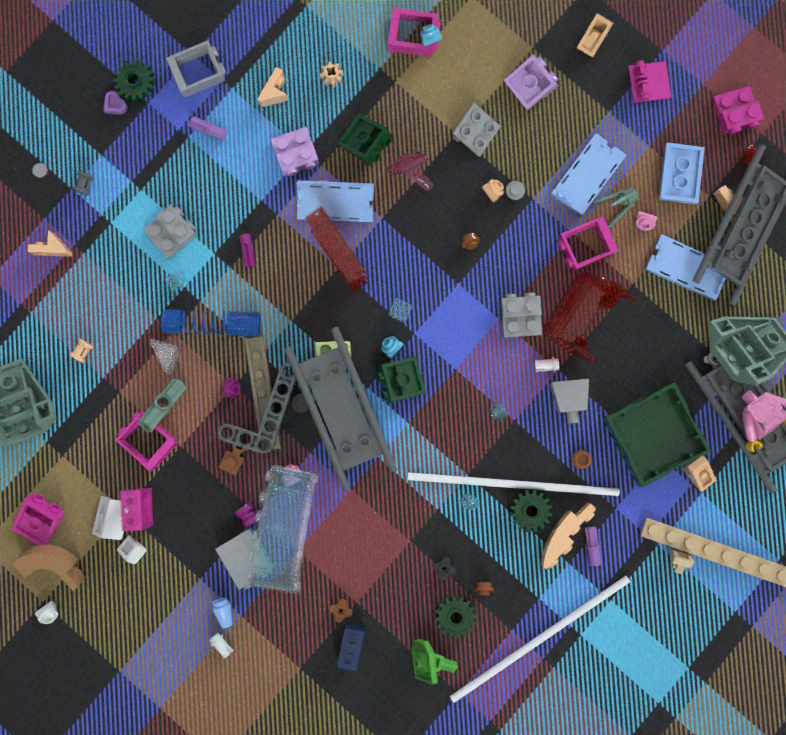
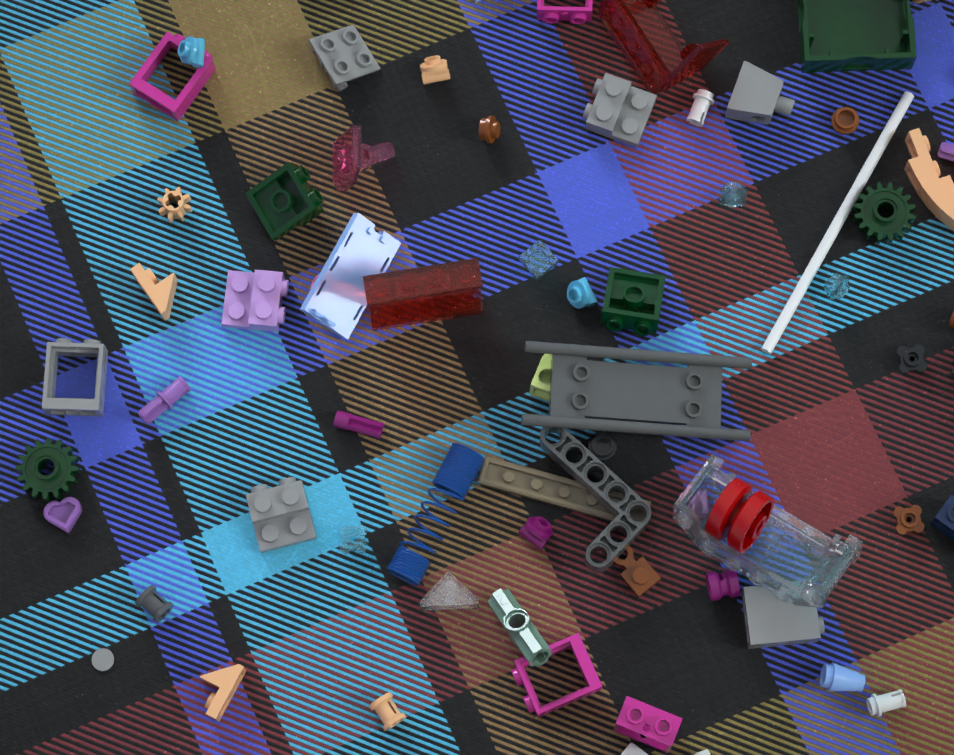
camera: 65 degrees left, 10 degrees down
(286, 508) = (739, 515): none -> red wheel
(515, 190) = (449, 43): light grey plate -> none

